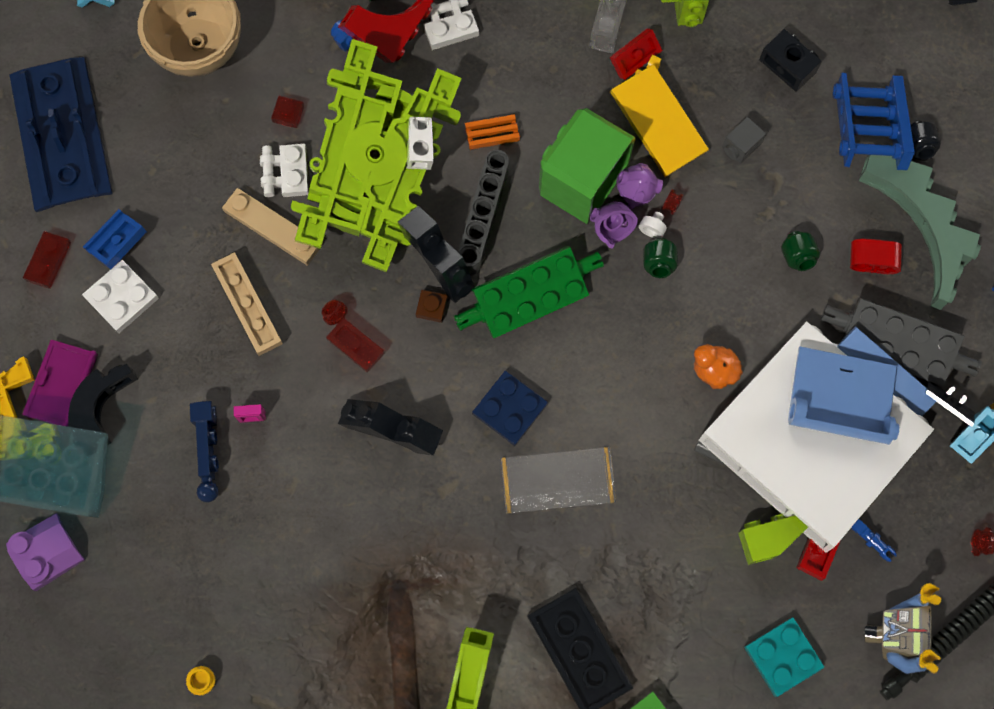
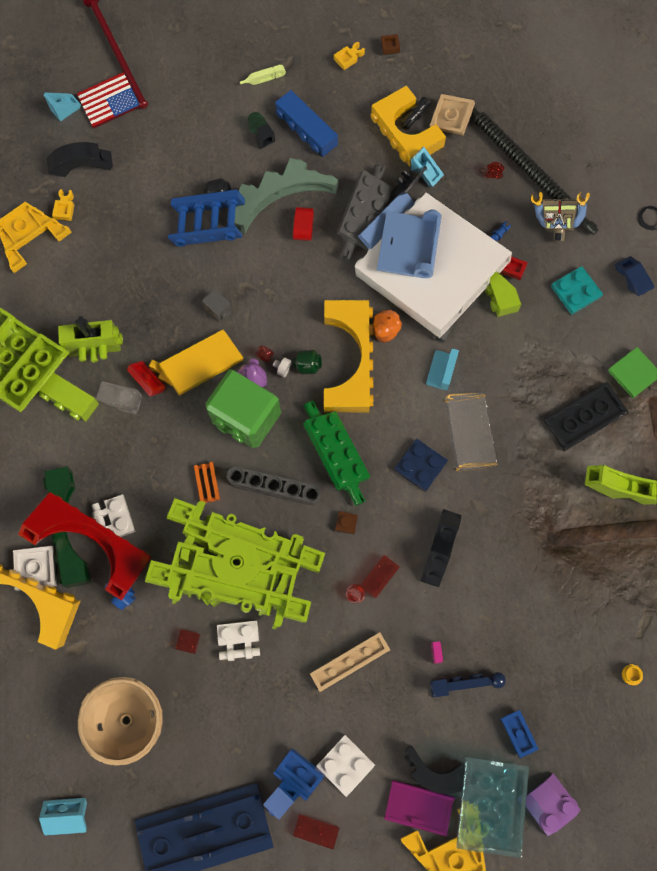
camera: 90 degrees left, 0 degrees up
(86, 216) = (281, 799): none -> blue brick
(136, 516) = (519, 734): none -> blue plate
(268, 225) = (283, 651): tan plate -> none
(420, 143) = (229, 526): white leg -> none
(440, 256) = (317, 511): black arch -> none
(612, 222) = (284, 394): medium lavender helmet -> none
(617, 322) = (355, 393): none -> yellow arch
(652, 445) = (442, 369): none -> medium azure panel
(793, 73) = (152, 282): black brick -> none
(800, 251) = (300, 270): dark green head -> none

